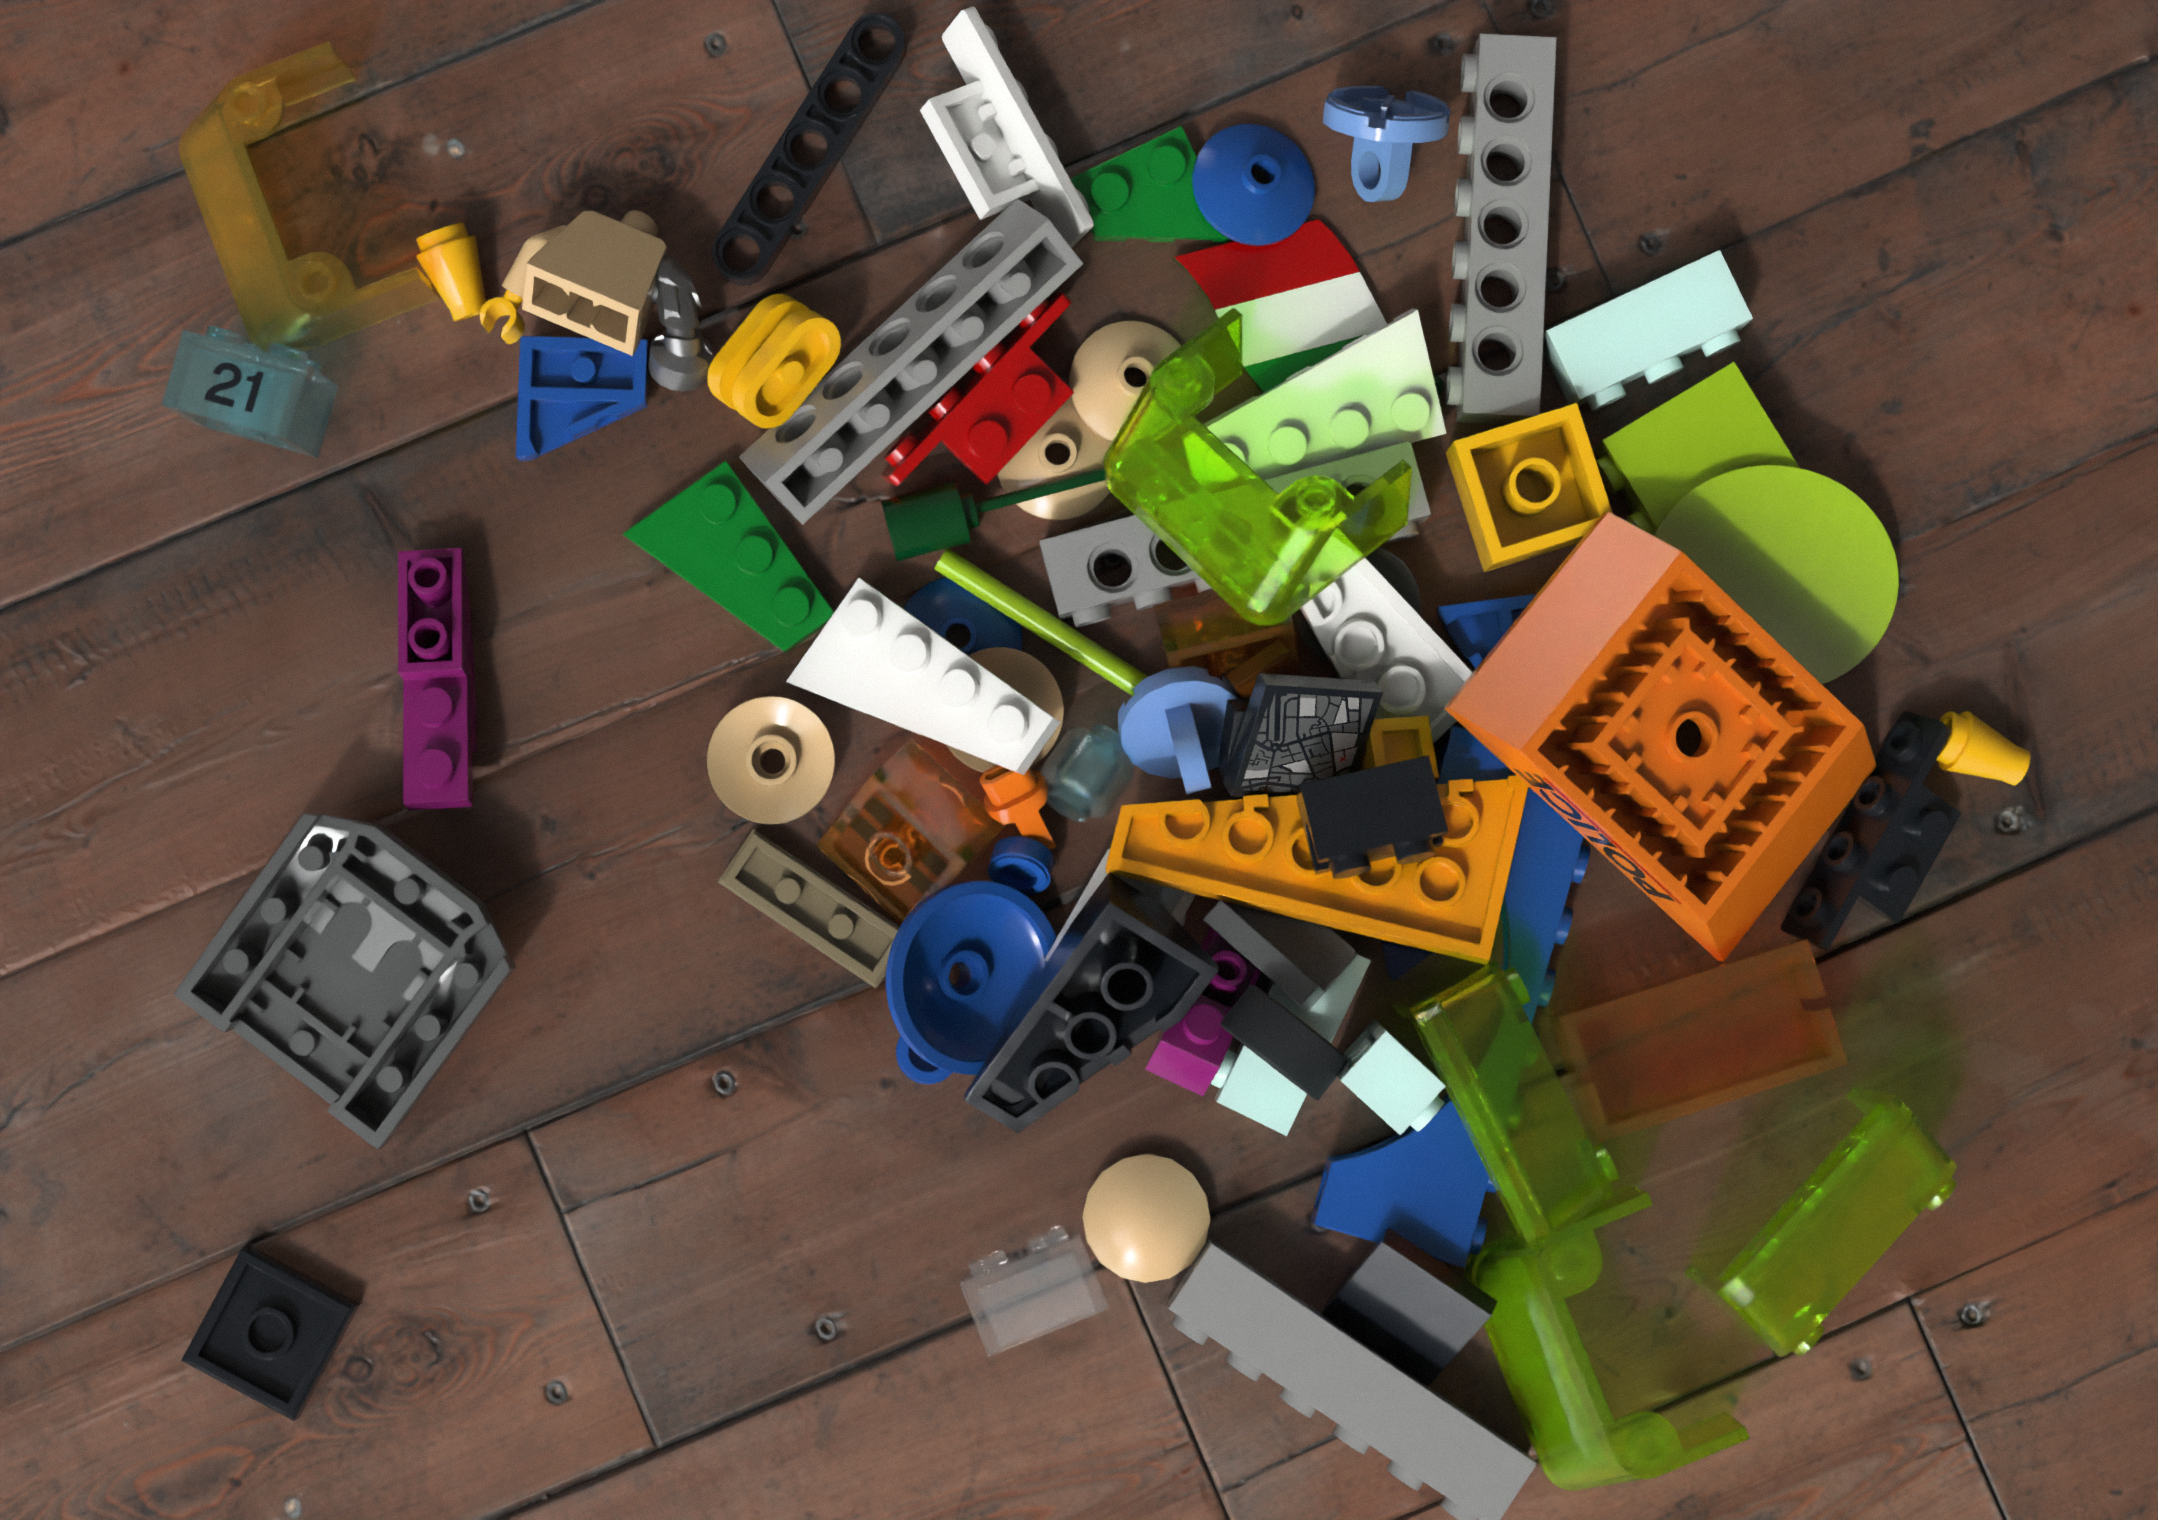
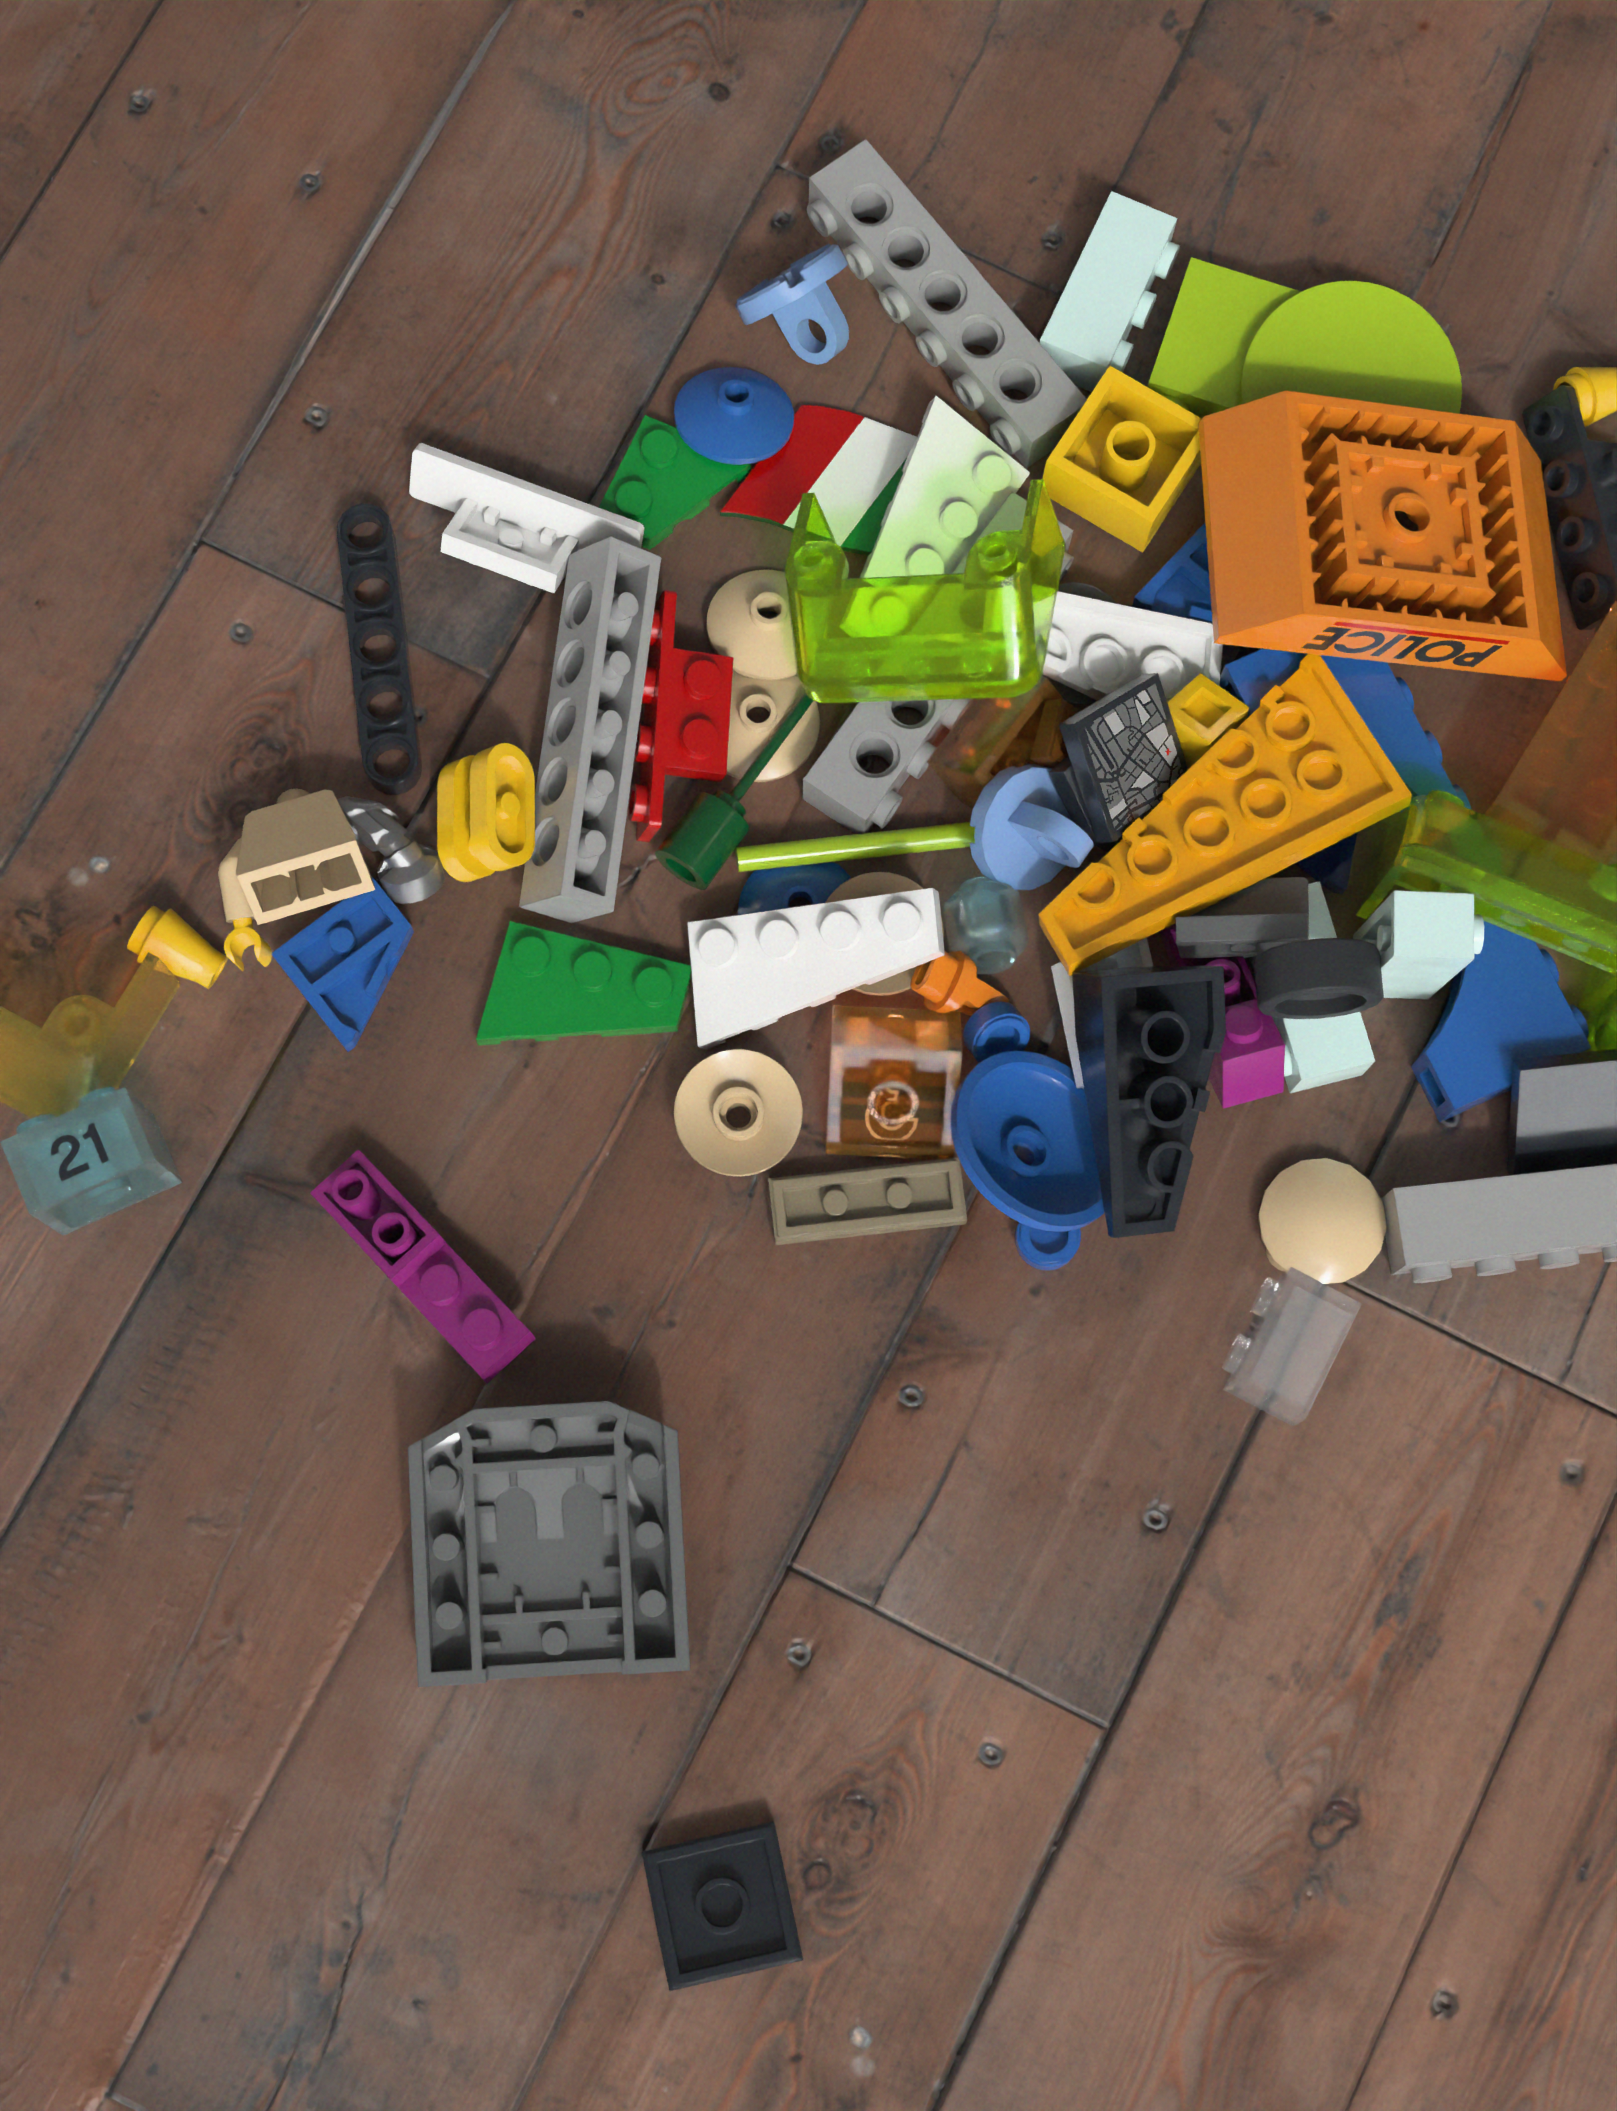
camera: 45 degrees left, 10 degrees down
(1372, 817) = (1233, 761): black brick -> none

